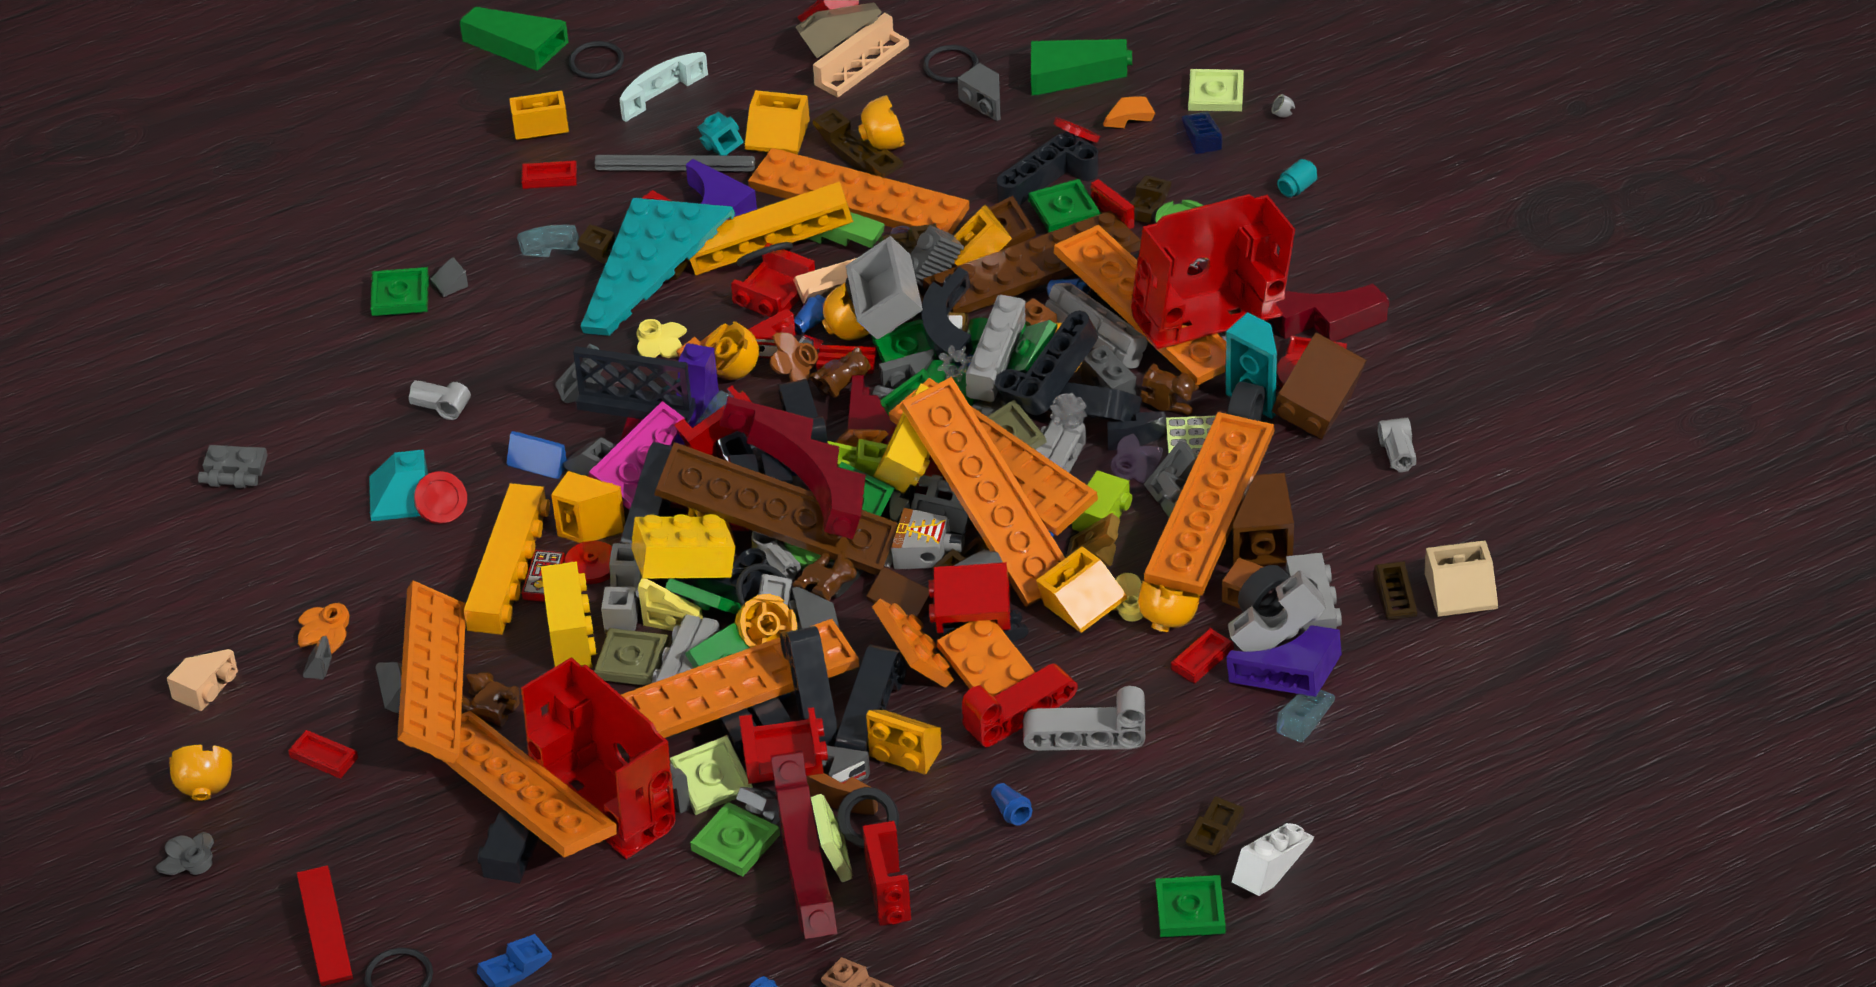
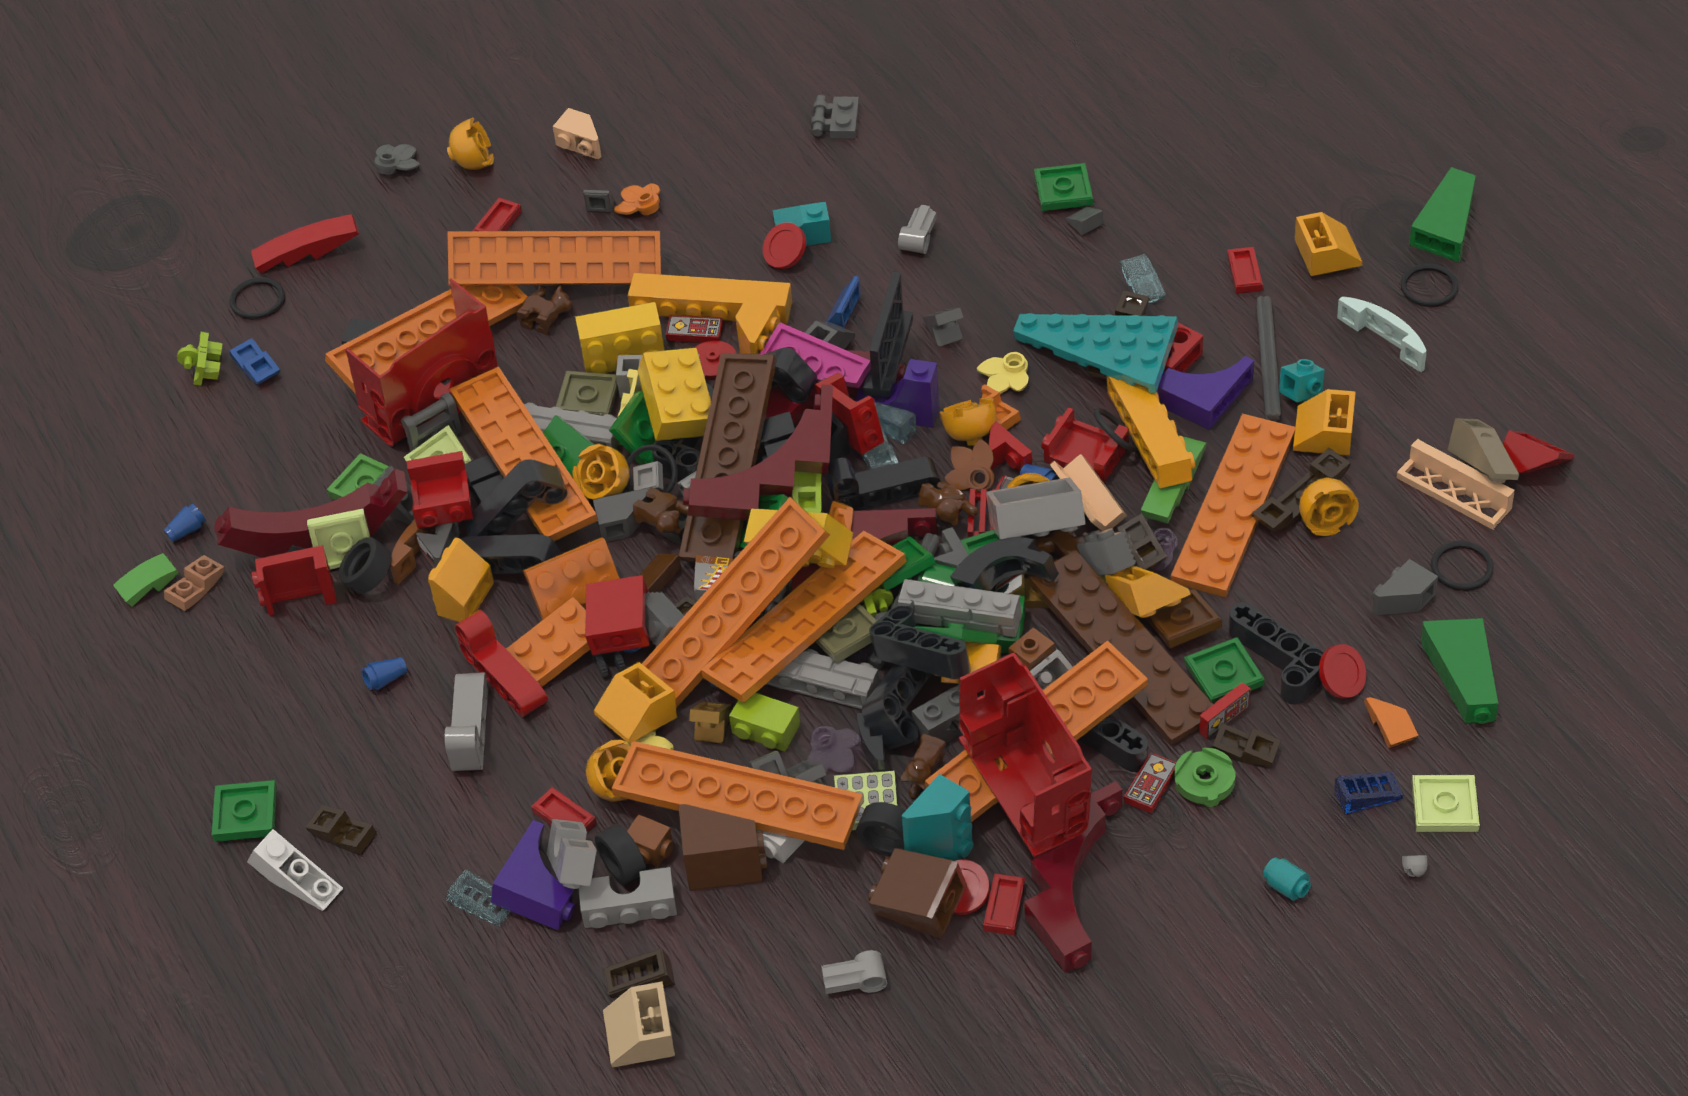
camera: 90 degrees right, 5 degrees up
(951, 370) = (935, 572): clear gear -> none
(1068, 411) = (864, 670): clear gear -> none

